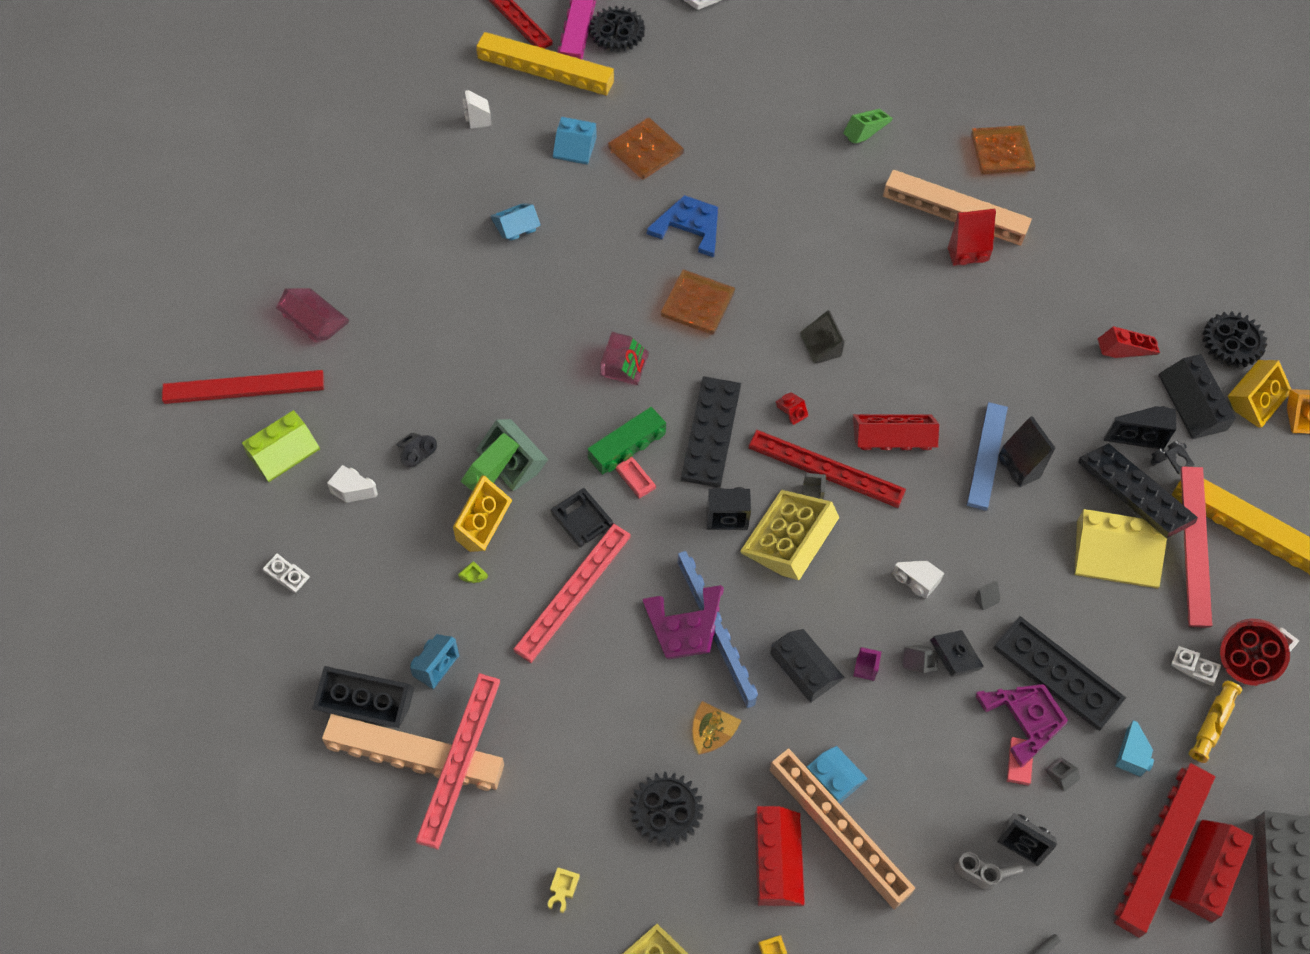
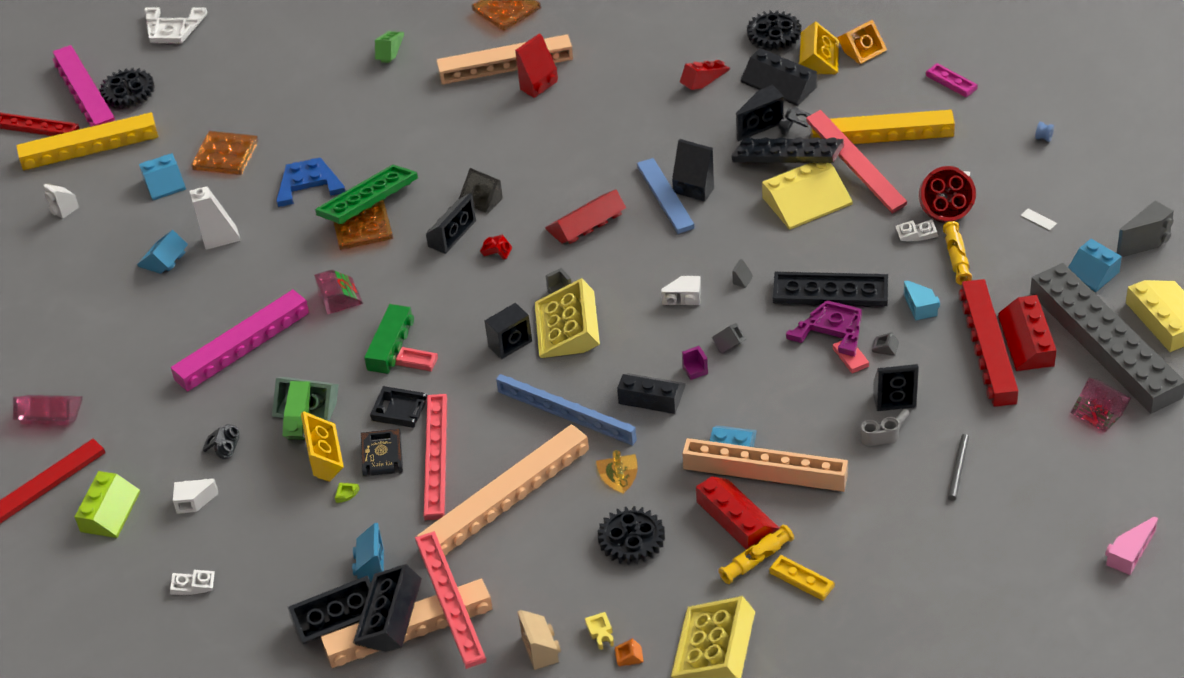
camera: 30 degrees left, 15 degrees down
(397, 734) = (388, 609): none -> black slope
(500, 859) = (538, 639): none -> tan slope
(508, 354) = (239, 340): none -> dark pink brick
(528, 558) = (381, 454): none -> black container
(569, 932) = (629, 653): none -> orange slope
(572, 217) = (214, 222): none -> white slope
(600, 677) = (509, 488): none -> light nougat brick
(687, 632) = (545, 421): magenta wing -> none
(711, 432) = (448, 298): black plate -> none
(723, 274) = (366, 194): none -> green plate
(770, 358) = (452, 225): none -> black slope
(776, 917) = (766, 547): none -> yellow piece
(834, 471) = (571, 266): red tile -> none
(956, 653) = (751, 318): black plate -> none

